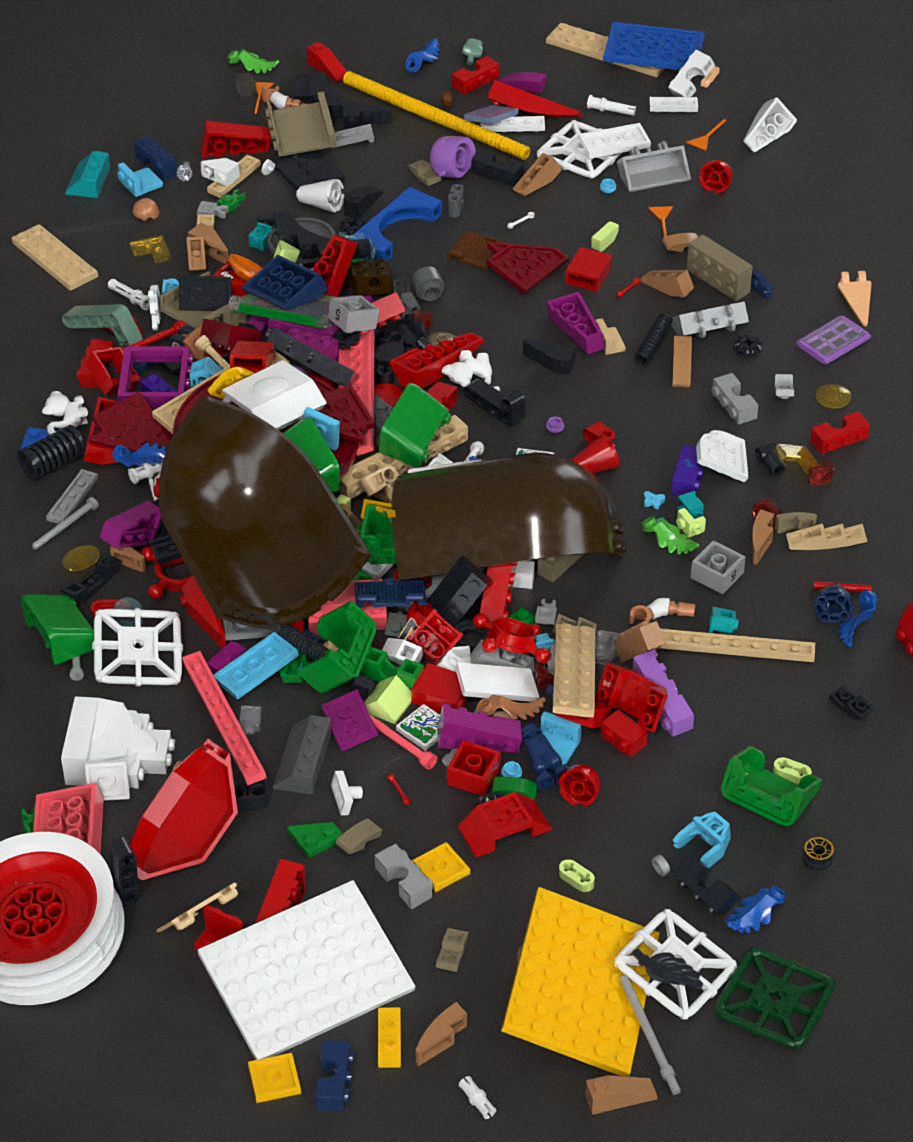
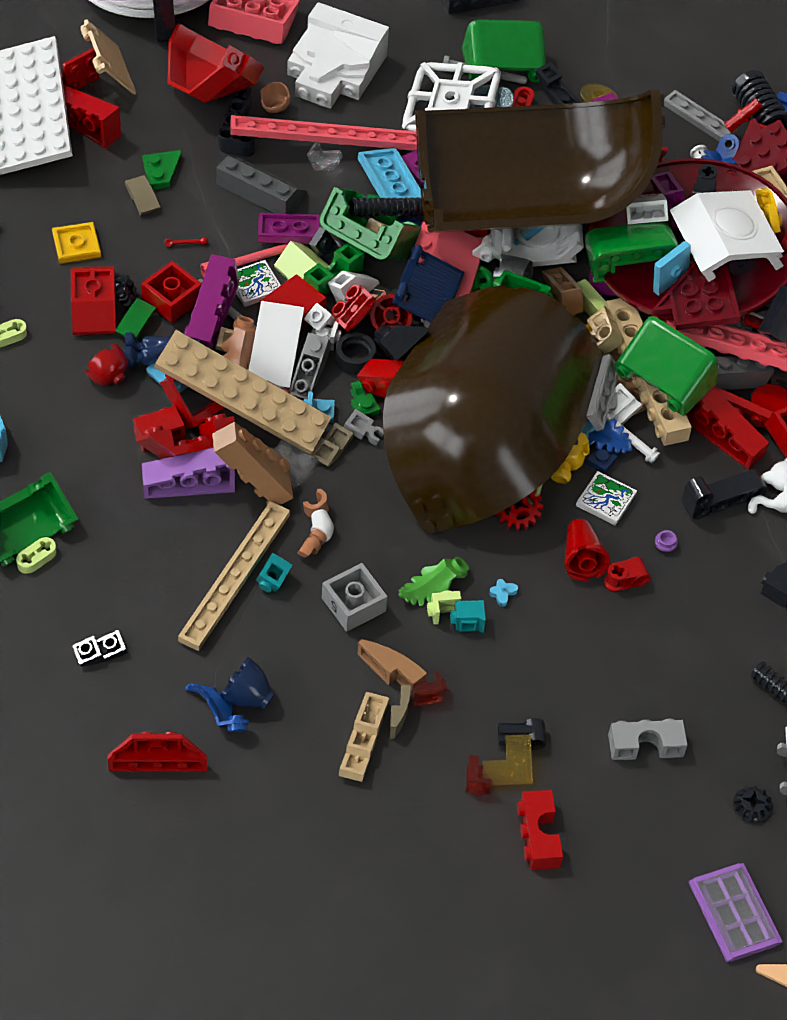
camera: 105 degrees right, 10 degrees up
(77, 454) = (743, 115): none -> red pin
(91, 504) = (679, 124): light grey bar -> none
(110, 778) = (291, 40): white tile -> none
(343, 793) = (198, 197): white tile -> none
(396, 864) = (91, 209): light grey arch -> none
(511, 636) = (362, 355): red piece -> none
(511, 769) = (161, 327): medium azure plate -> none
(682, 361) = (737, 709): medium nougat slope -> none
(687, 472) = (532, 637): dark purple brick -> none
(724, 454) = (541, 676): white plate -> none
(783, 385) = (649, 803): light grey bracket -> none
(833, 396) = (620, 873): clear yellow dish -> none
(849, 587) = (279, 720): red bar -> none

